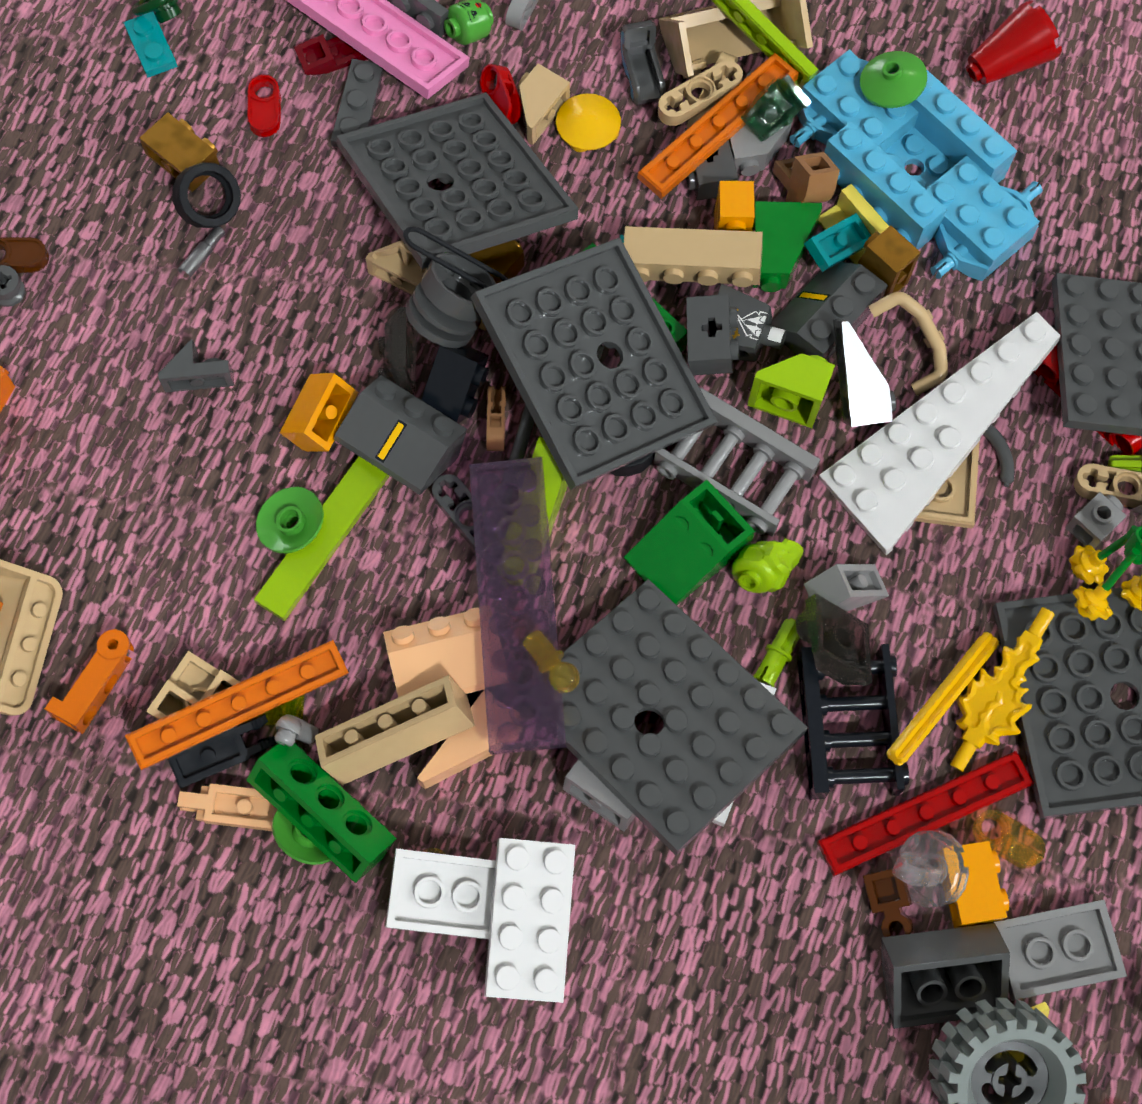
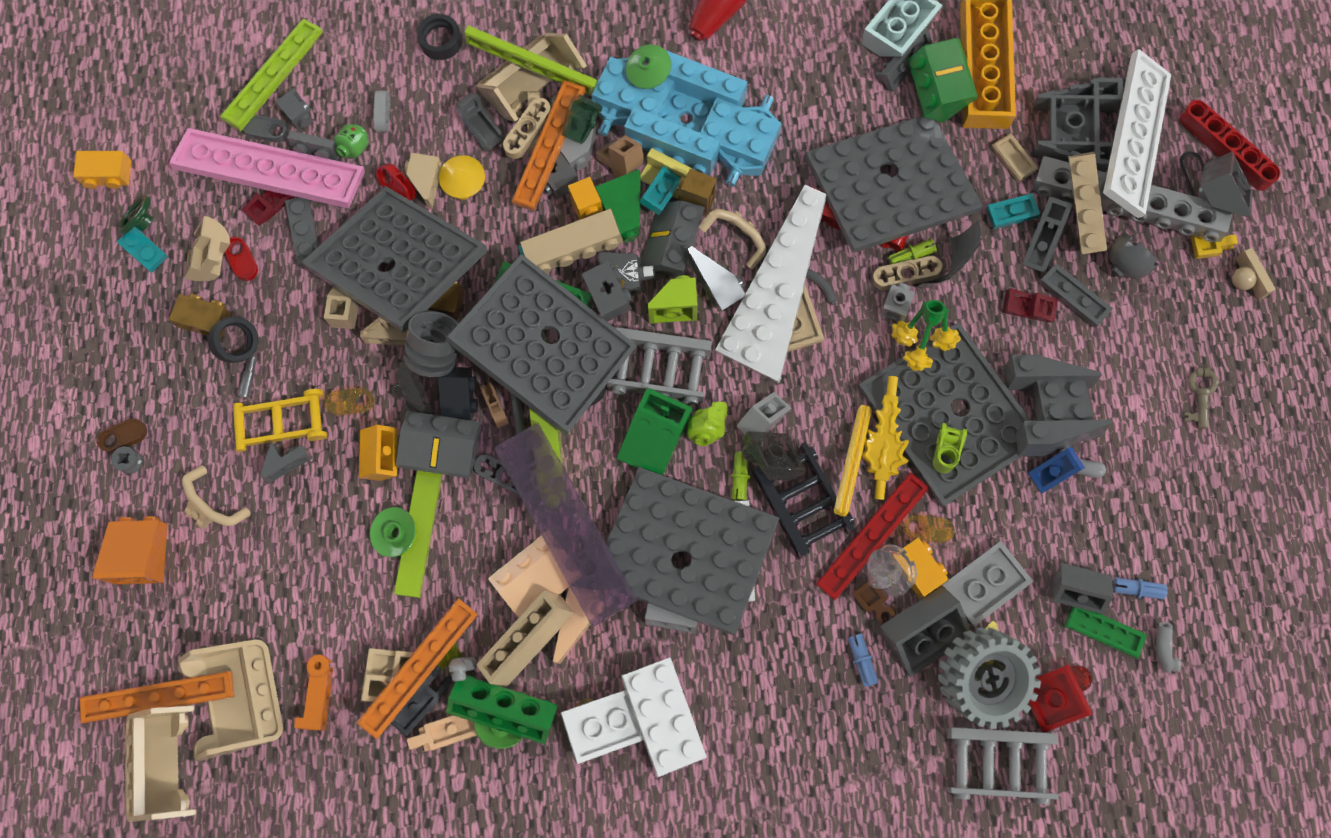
camera: 20 degrees left, 5 degrees up
(63, 387) = (200, 510): none -> tan piece
(227, 77) = (207, 251): none -> tan brick
(249, 355) = (315, 433): none -> yellow piece
(307, 333) = (344, 401): none -> clear yellow piece
(357, 217) = (340, 310): none -> tan slope
(453, 249) = (420, 311): black piece -> none
(563, 675) = (616, 559): clear yellow axle -> none
(837, 974) = (863, 660): none -> medium blue axle
(1088, 735) = (949, 443): none -> lime piece

